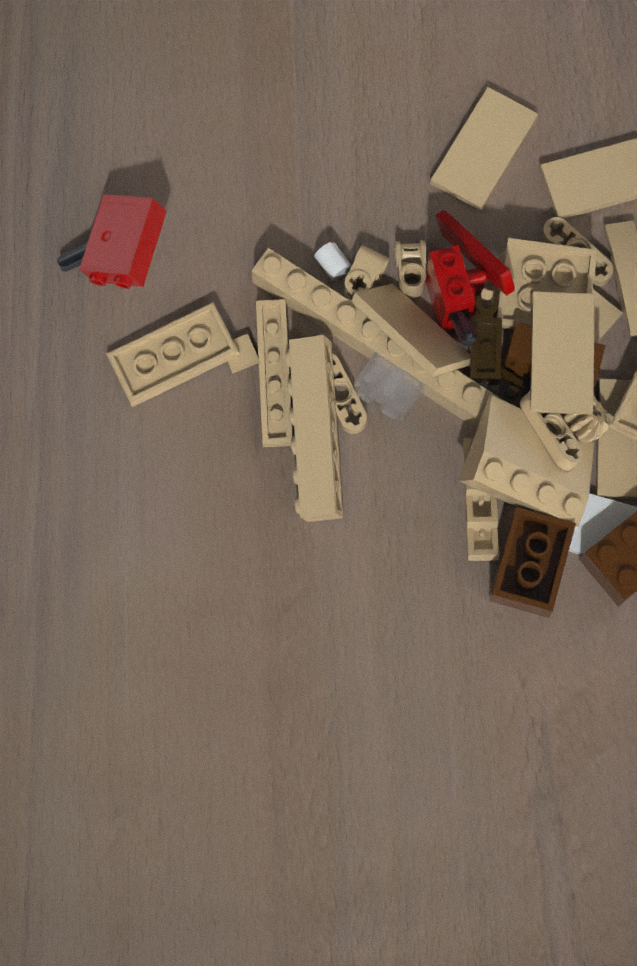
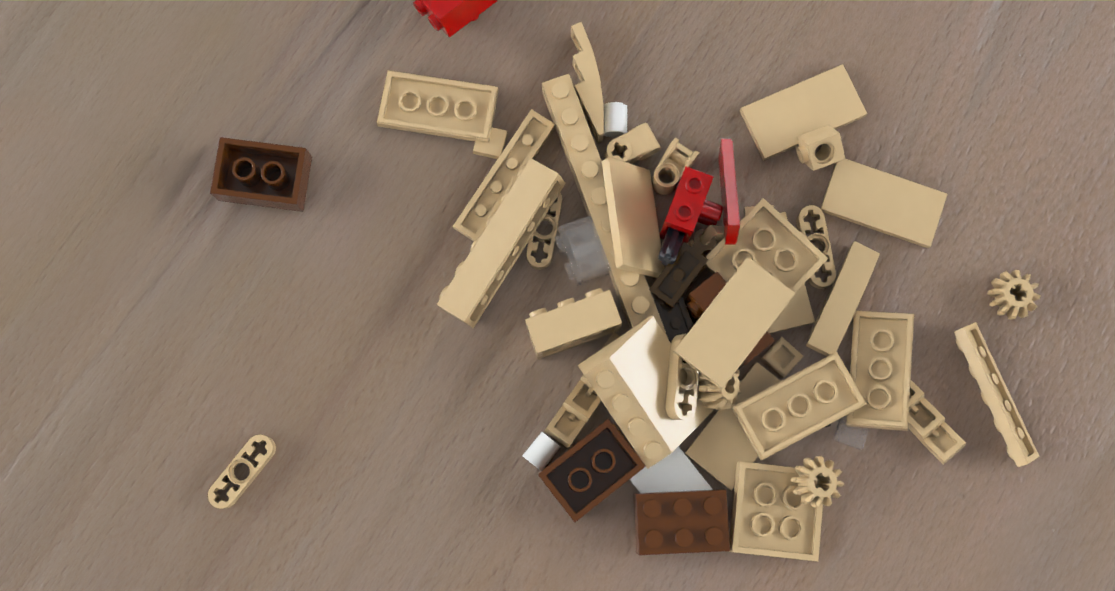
camera: 35 degrees right, 5 degrees up
(64, 515) = (261, 174): none -> reddish brown brick
(244, 756) = (233, 493): none -> tan beam
(283, 239) = (589, 88): none -> tan slope
(426, 451) = (573, 323): none -> tan brick
(478, 578) = (541, 451): none -> white piece
(531, 164) = (830, 152): none -> tan brick
(617, 361) = (782, 357): none -> tan tile

